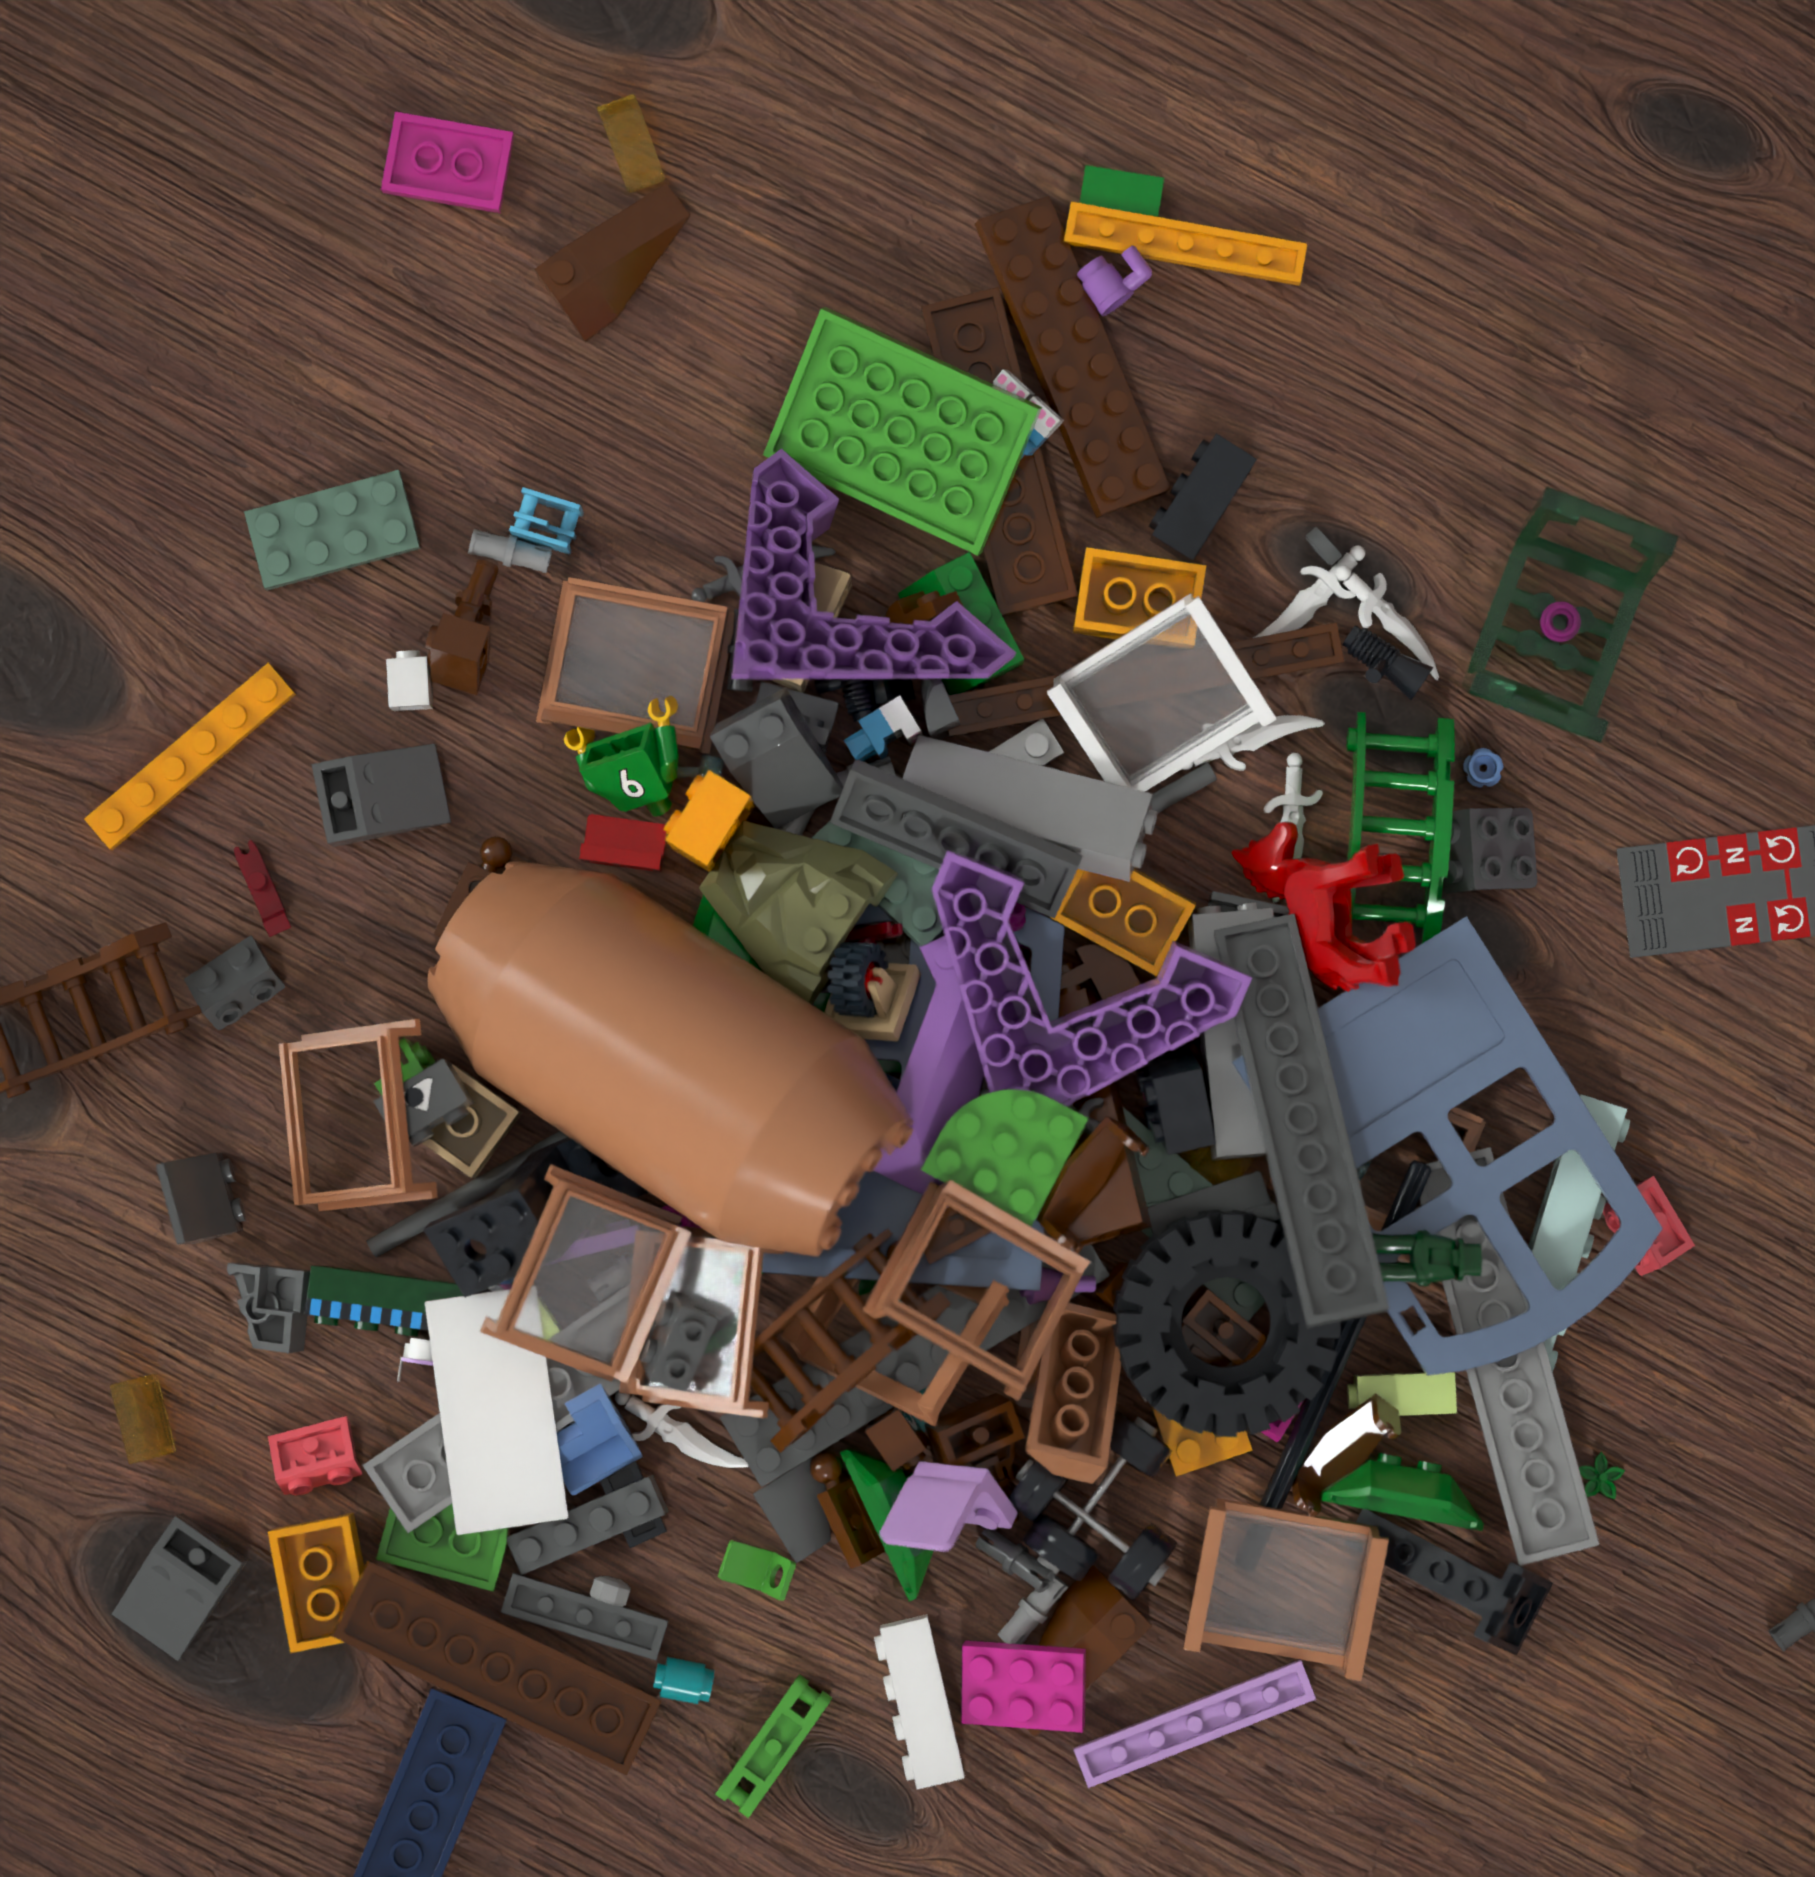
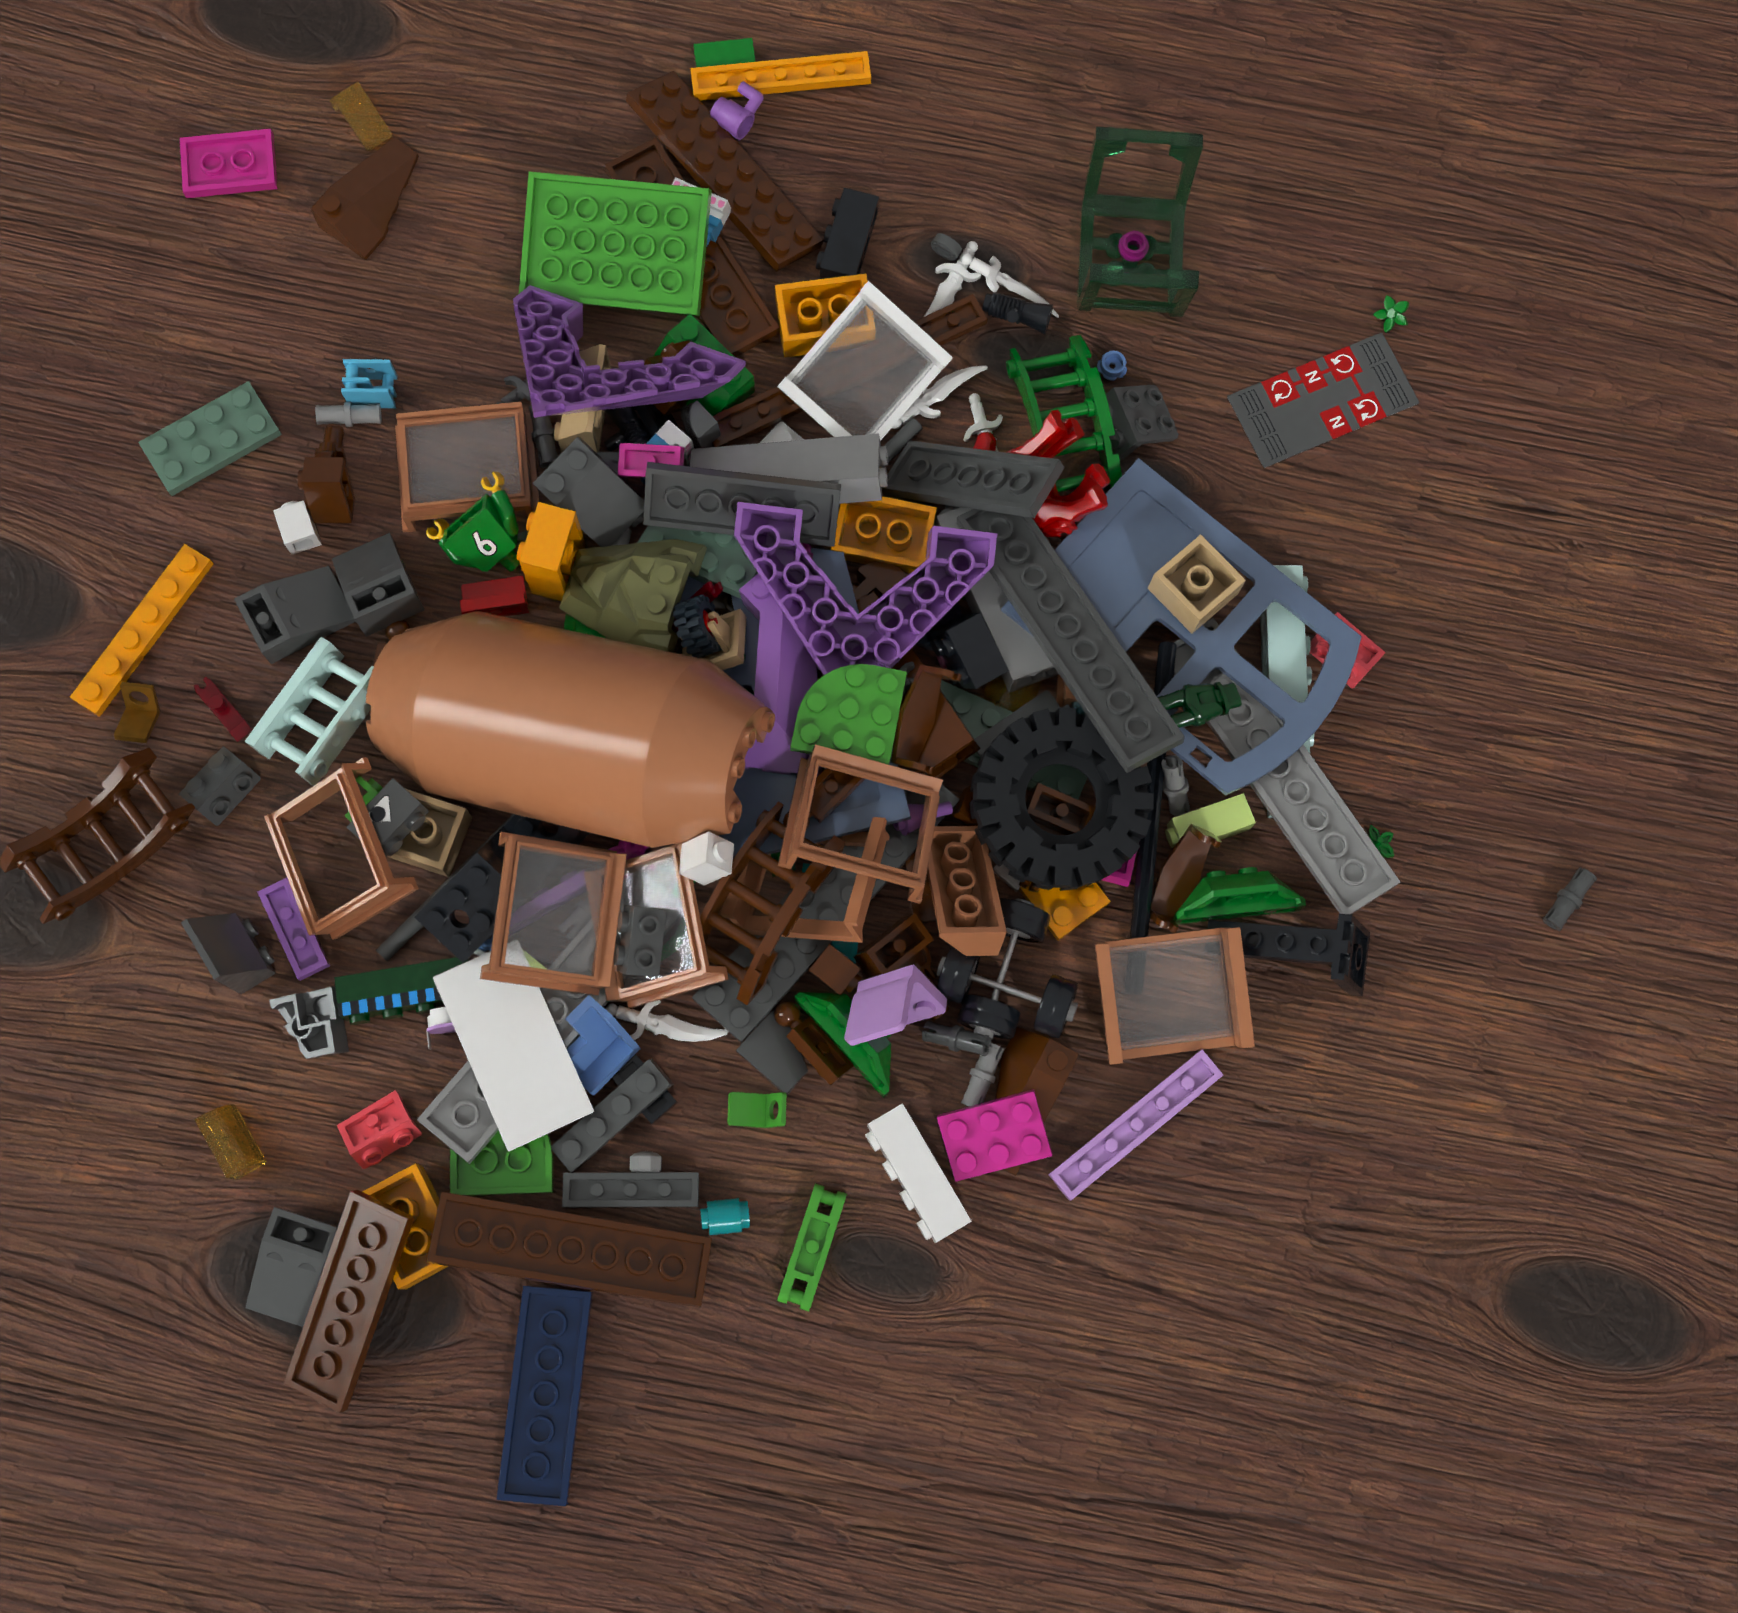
camera: 25 degrees left, 10 degrees down
(158, 868) = (138, 716): none -> pearl gold bracket
(232, 1647) = (348, 1300): none -> reddish brown plate
(281, 1220) = (301, 949): none -> medium lavender plate
(338, 919) = (295, 698): none -> light aqua fence
(486, 787) = (377, 585): none -> dark grey slope
(781, 1277) = (706, 858): none -> white brick
(852, 740) = (634, 457): none -> dark pink plate
(1249, 885) = (973, 478): none -> dark grey plate
(1375, 1341) = (1175, 785): none -> light grey pin
(1476, 1110) = (1196, 584): none -> tan brick

